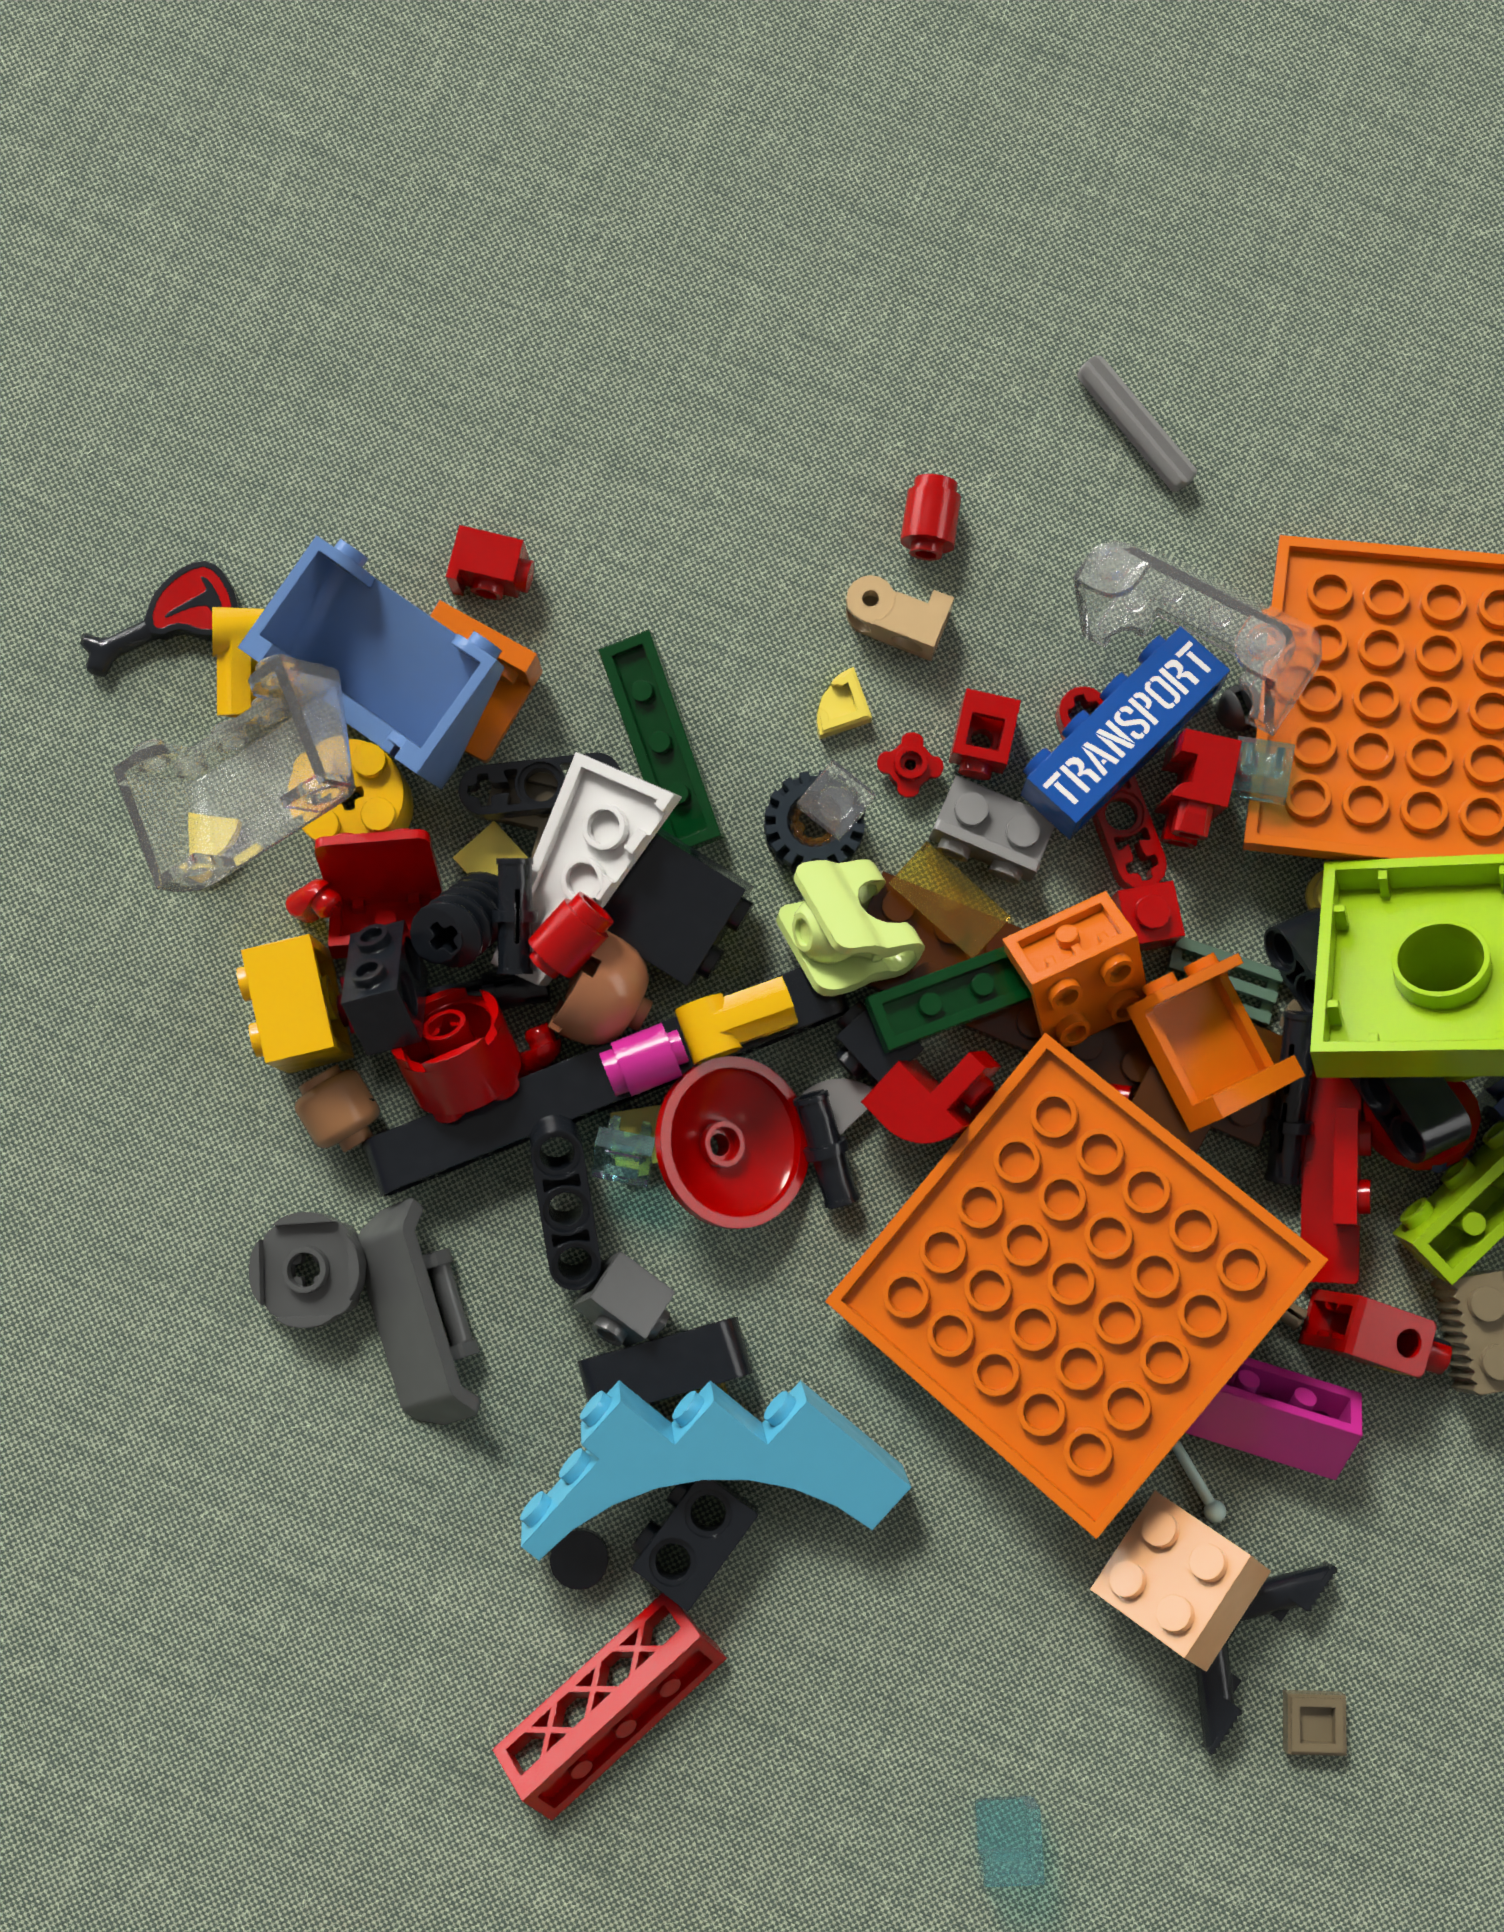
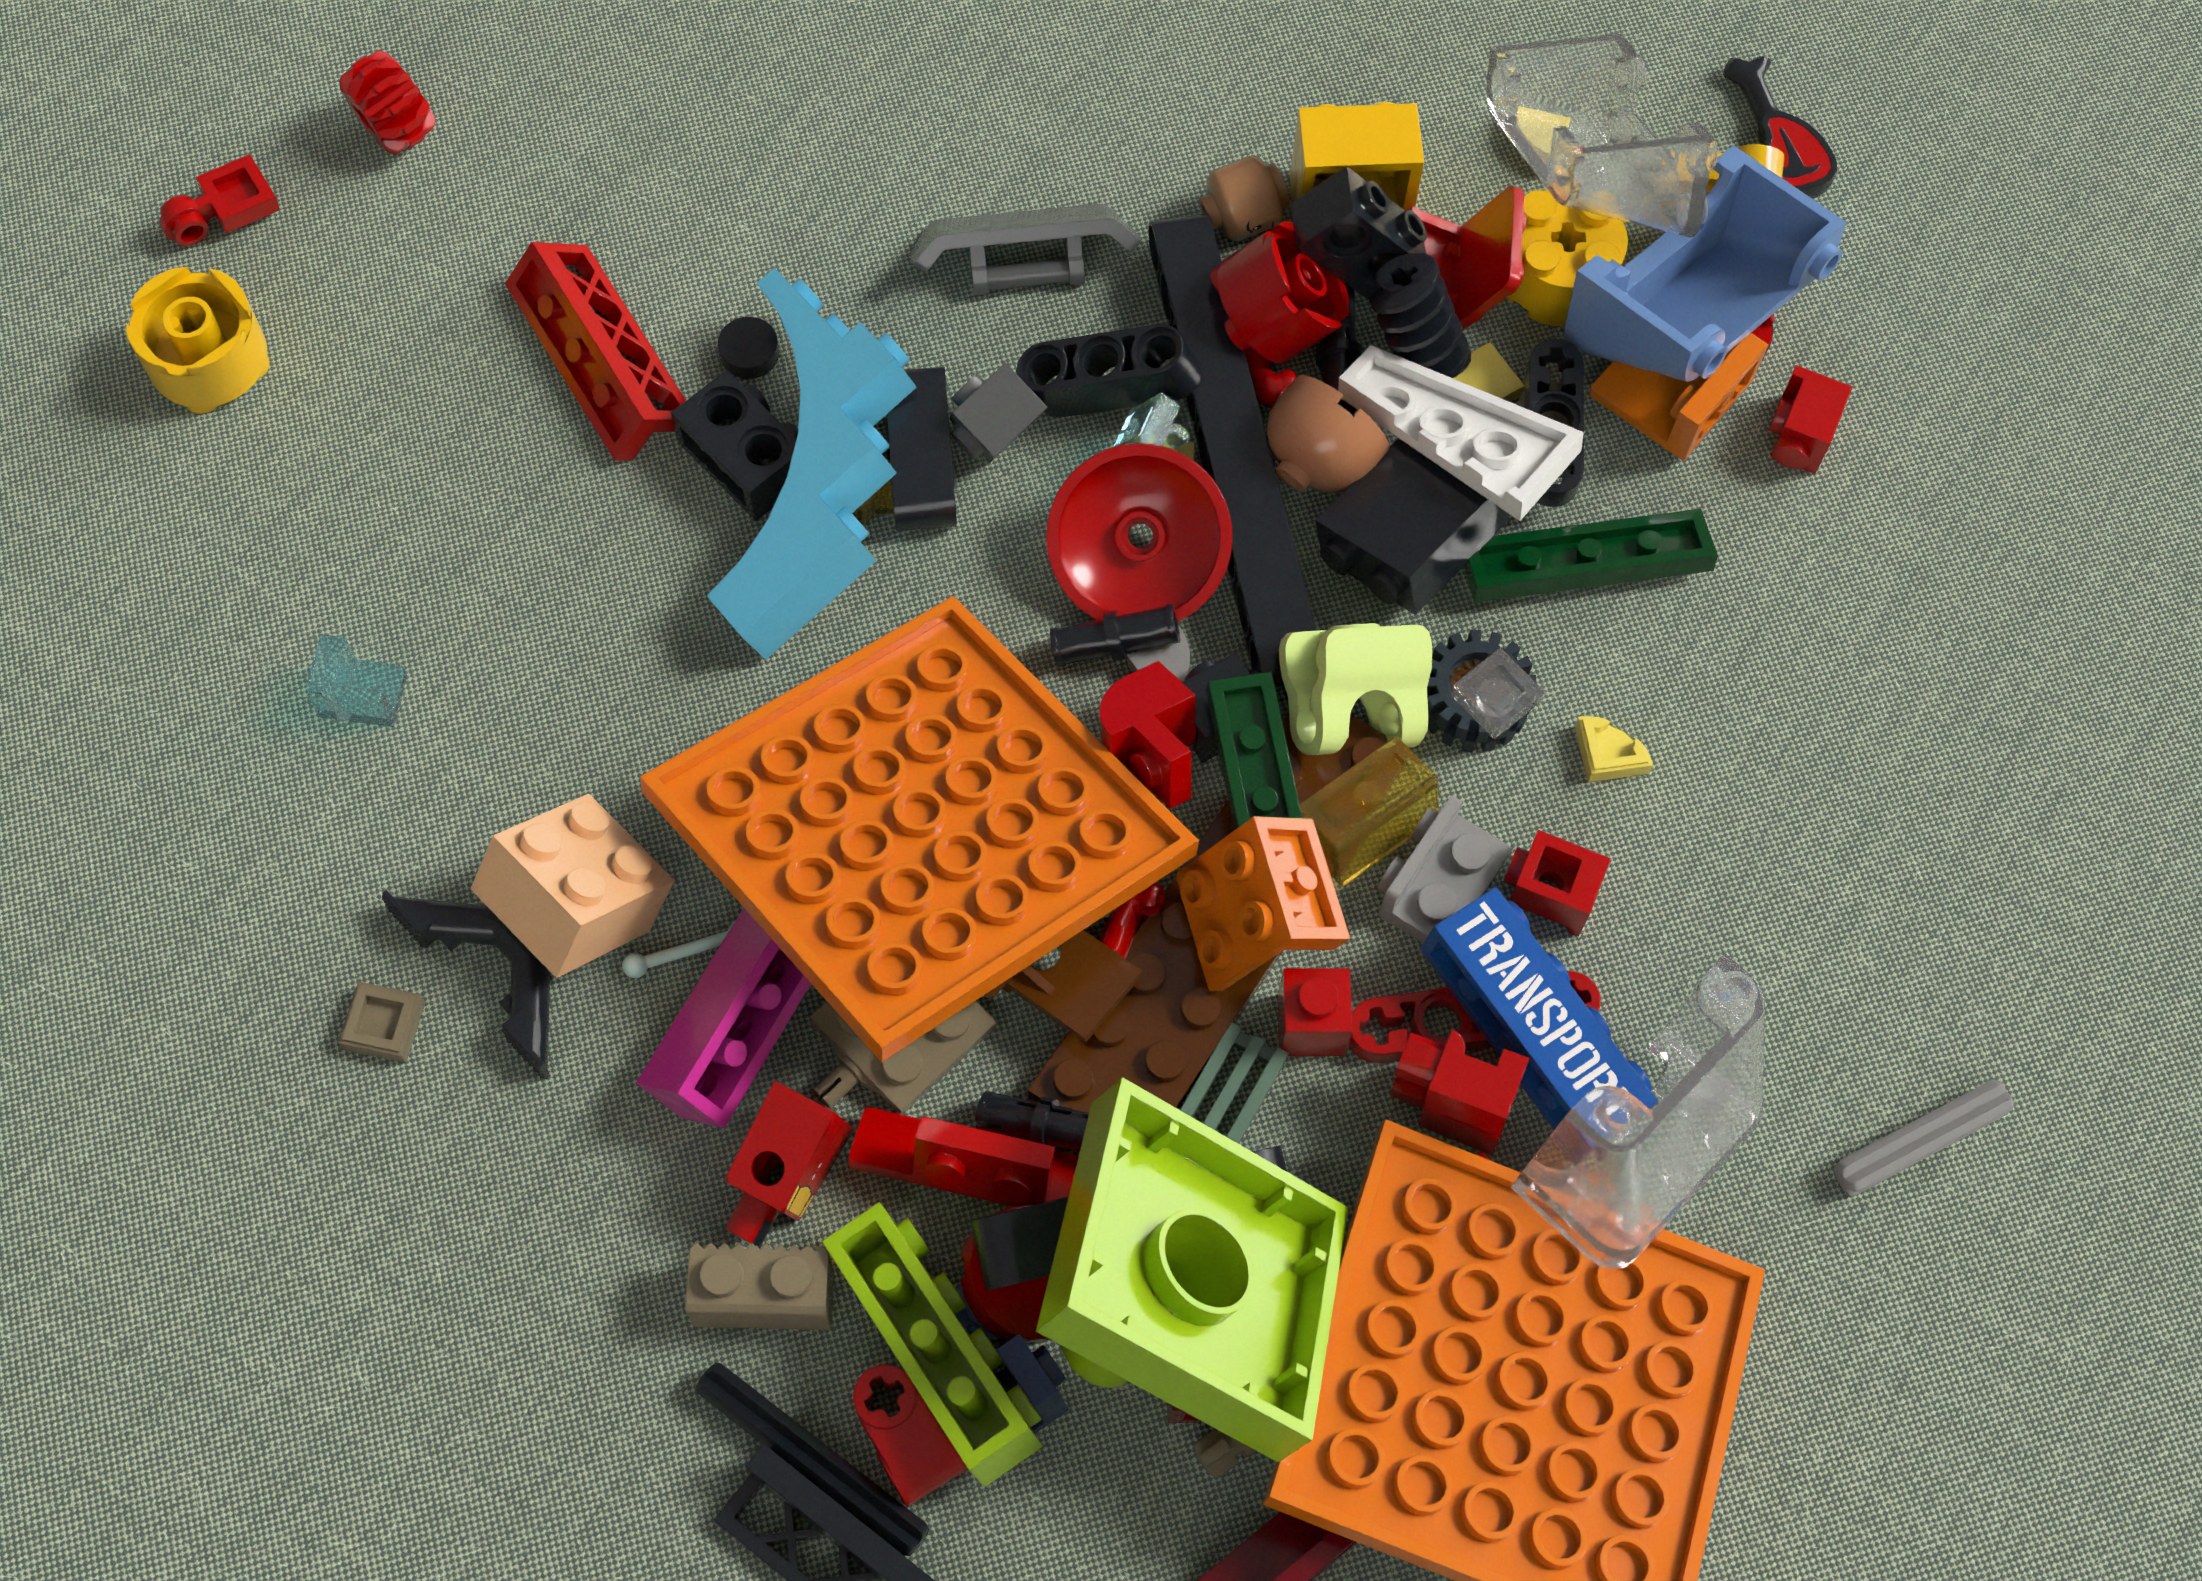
camera: 100 degrees right, 15 degrees down
(313, 901) = (1461, 201): red arm -> none
(334, 1289) = (1089, 180): dark grey plate -> none
(514, 915) = (1414, 356): black pin -> none
(569, 936) = (1384, 392): red brick -> none
(644, 1060) = (1241, 453): dark pink brick -> none
(722, 1023) = (1268, 536): yellow piece -> none
(896, 617) = (1713, 805): tan leg -> none
(907, 780) = (1526, 820): red plate -> none
(931, 517) = (1823, 875): red brick -> none
(1207, 1043) = (1161, 1022): orange panel -> none
(1263, 770) = (1470, 1154): clear light blue tile -> none

